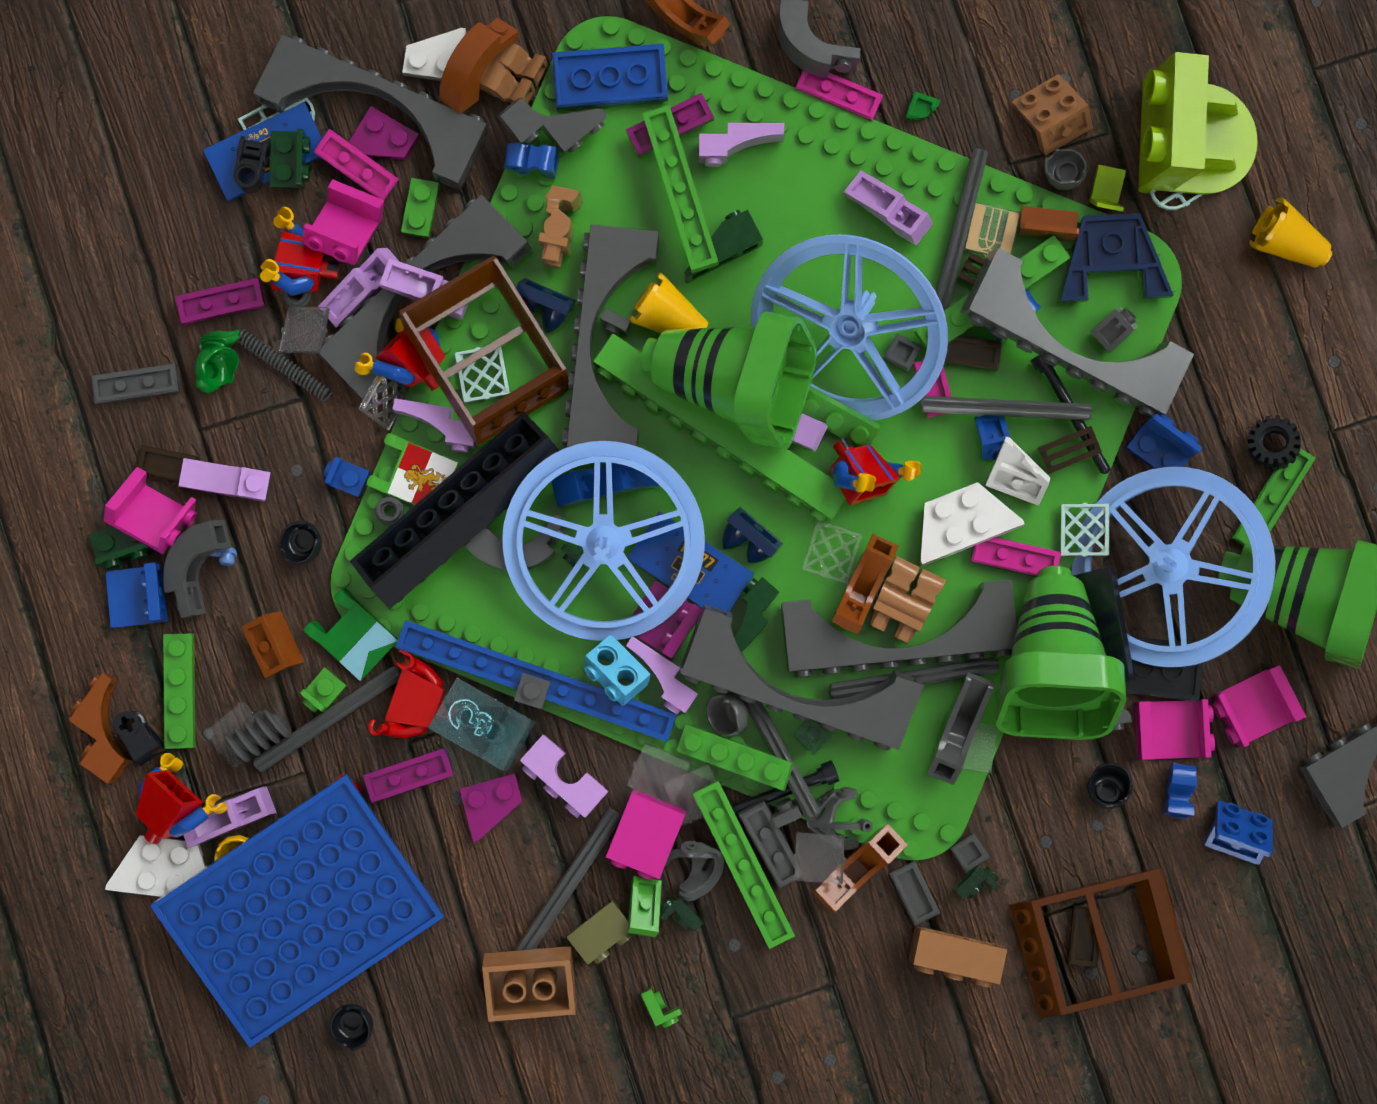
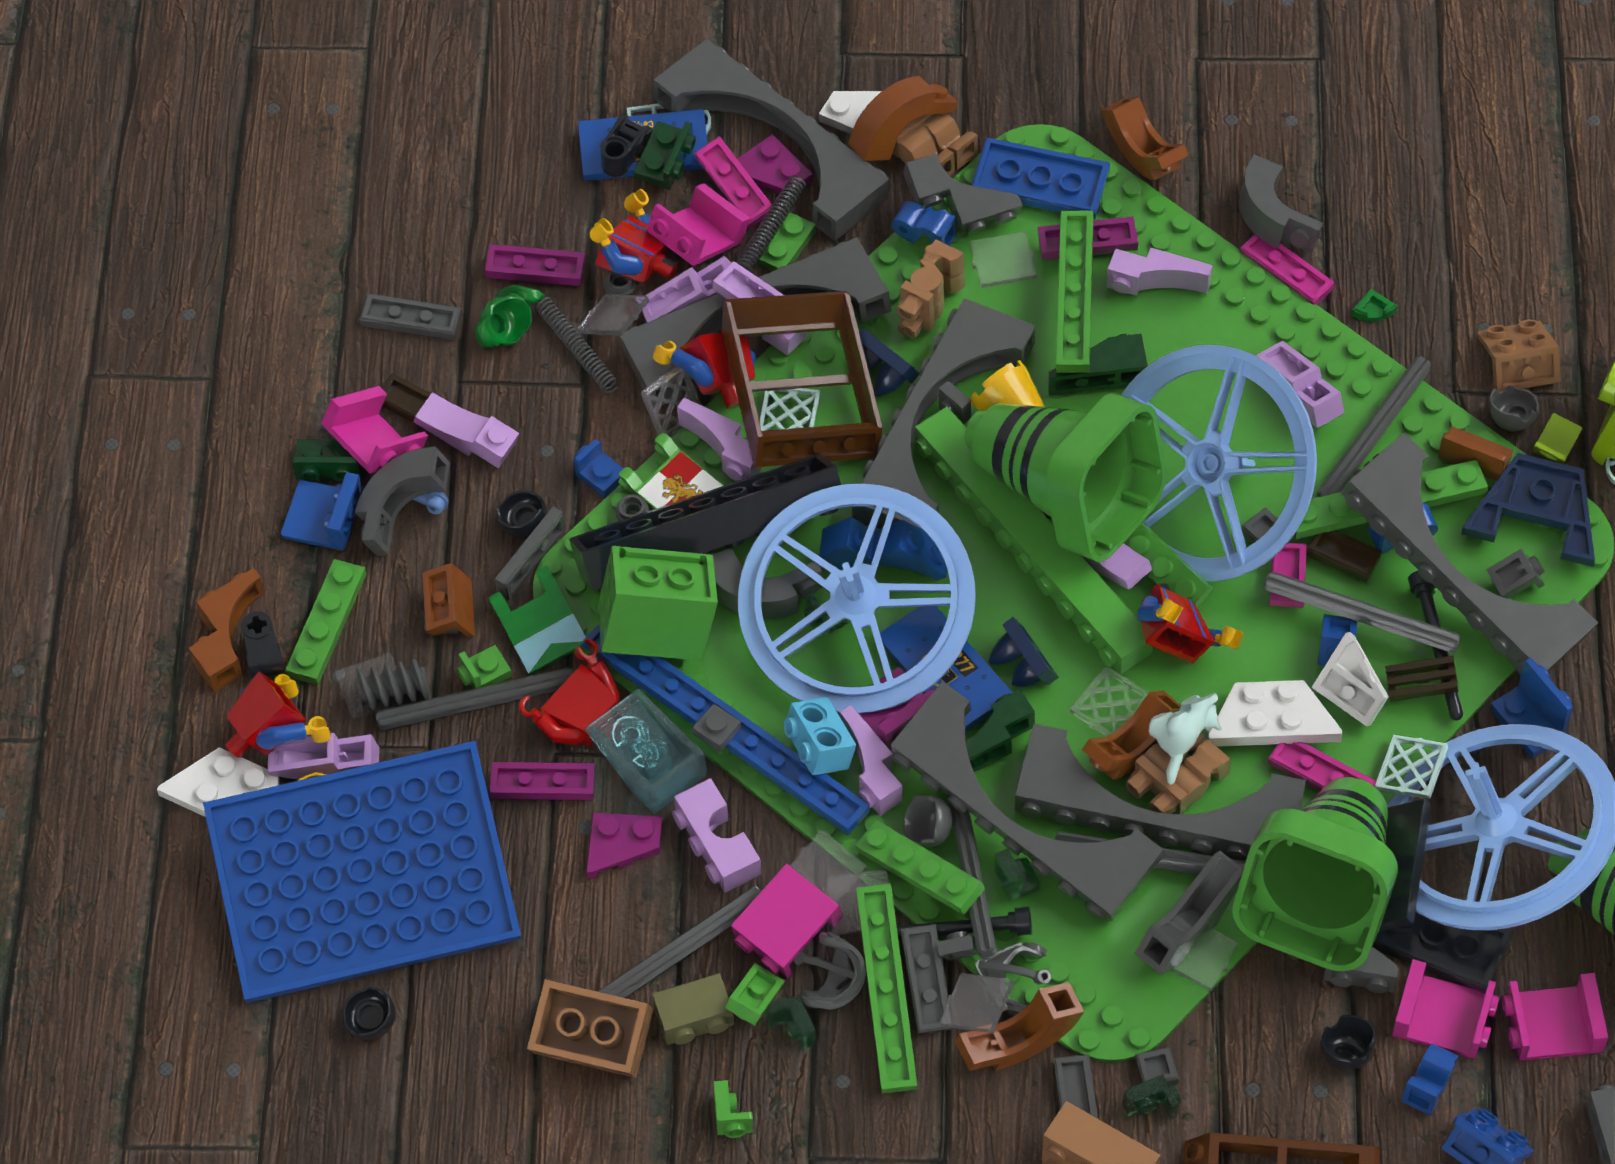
camera: 20 degrees right, 25 degrees down
(321, 576) = (530, 553): none -> dark grey tile
(410, 162) = (770, 228): none -> dark grey piece
(447, 607) = (657, 603): none -> bright green container
(606, 166) = (1003, 259): none -> clear piece
(903, 576) = (1180, 730): none -> light aqua animal
(991, 229) = (1418, 430): piece -> none

